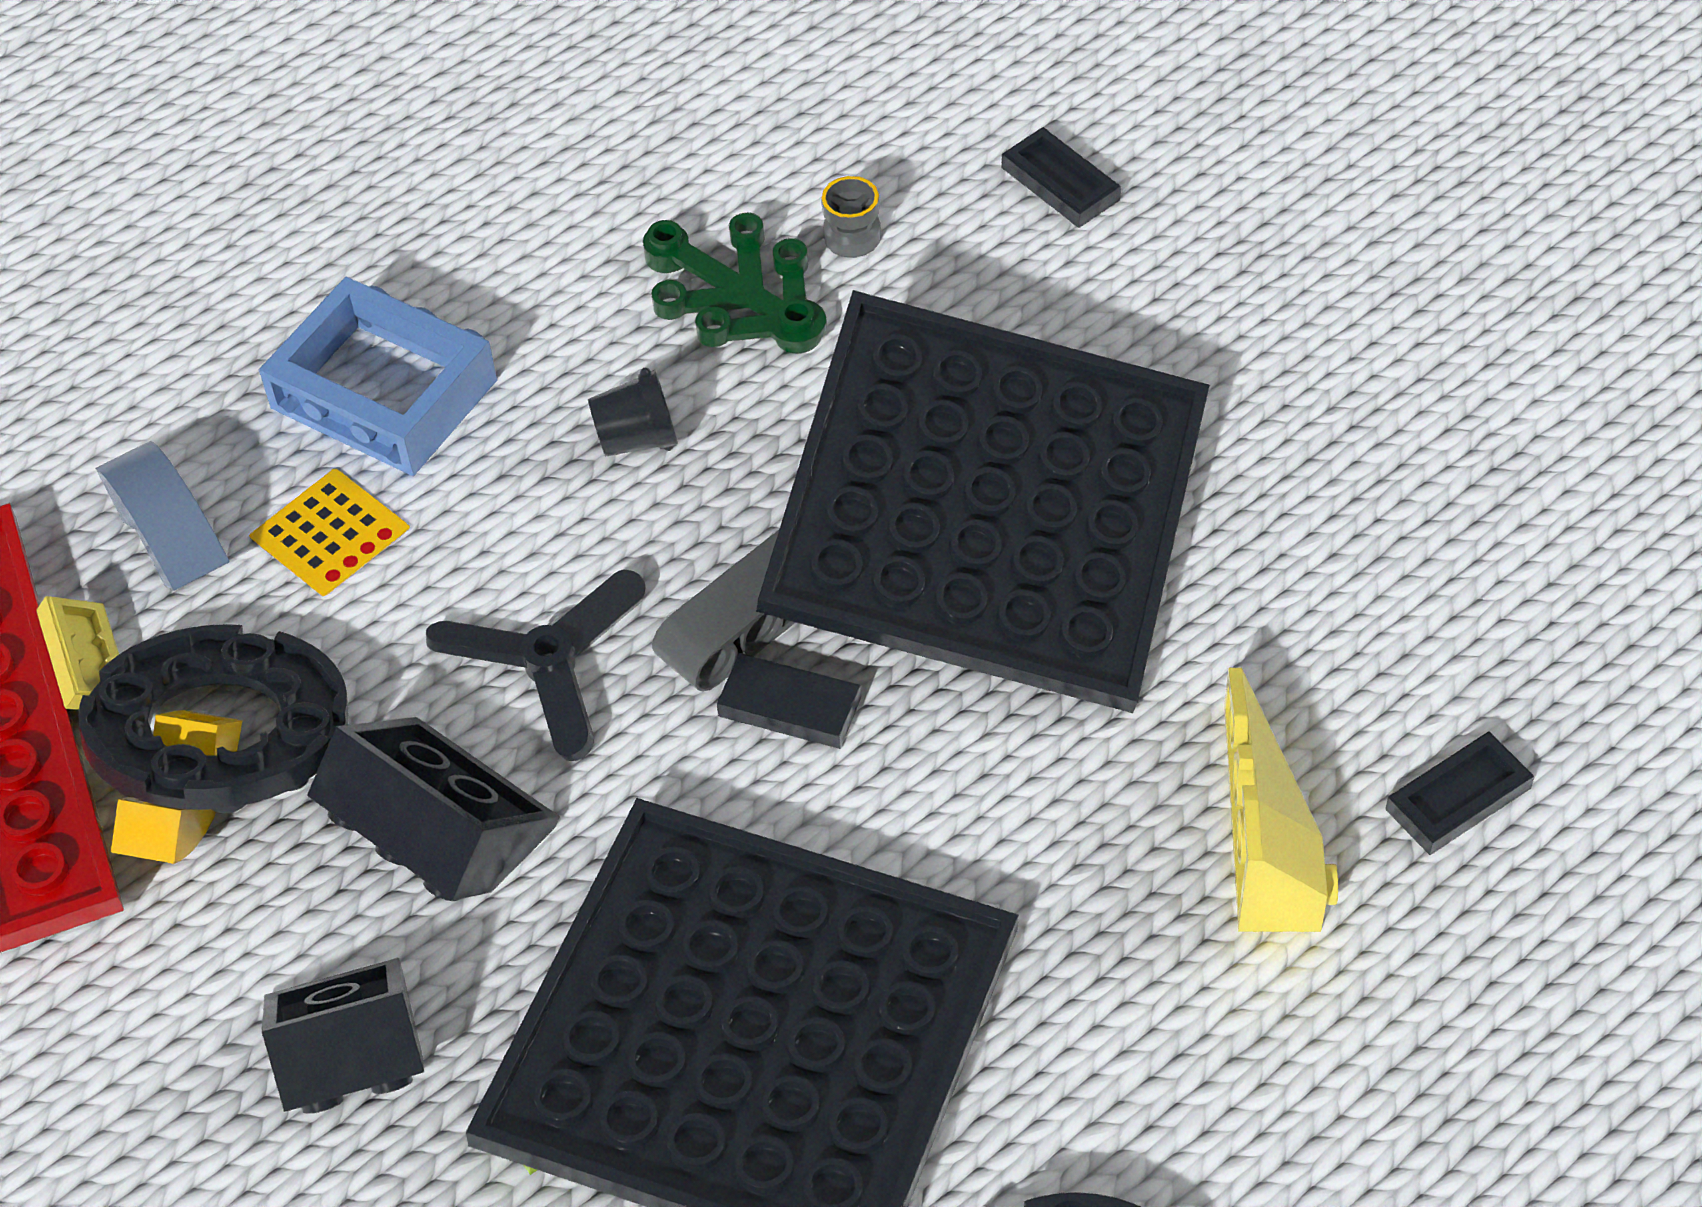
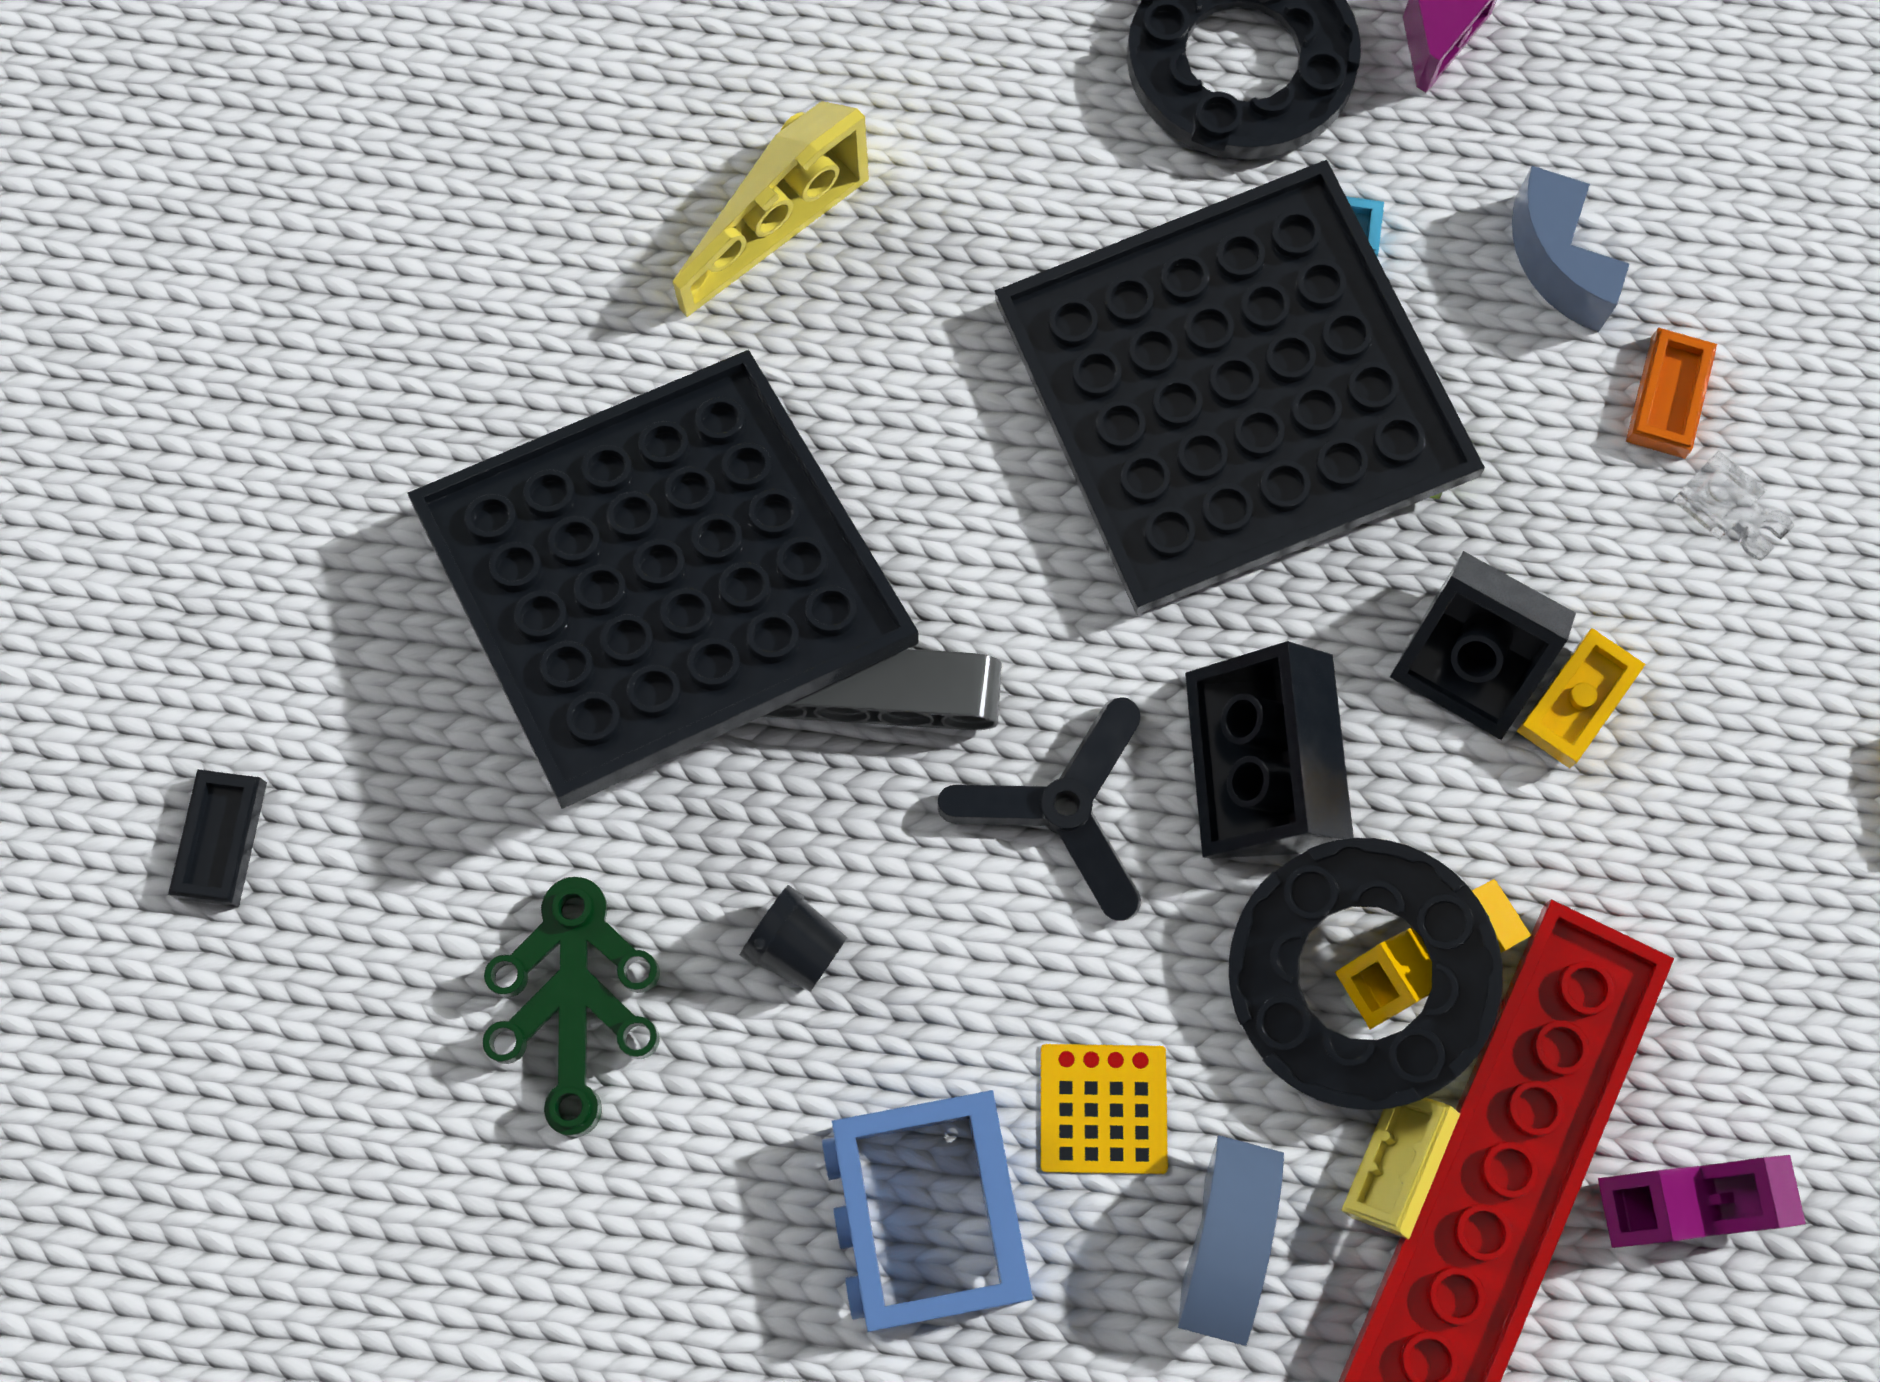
camera: 135 degrees left, 20 degrees up
(224, 1071) = (1581, 698): none -> yellow plate
(789, 700) = (948, 594): black tile -> none
(851, 216) = (404, 955): dark grey wheel -> none
(1459, 792) = (640, 117): black tile -> none

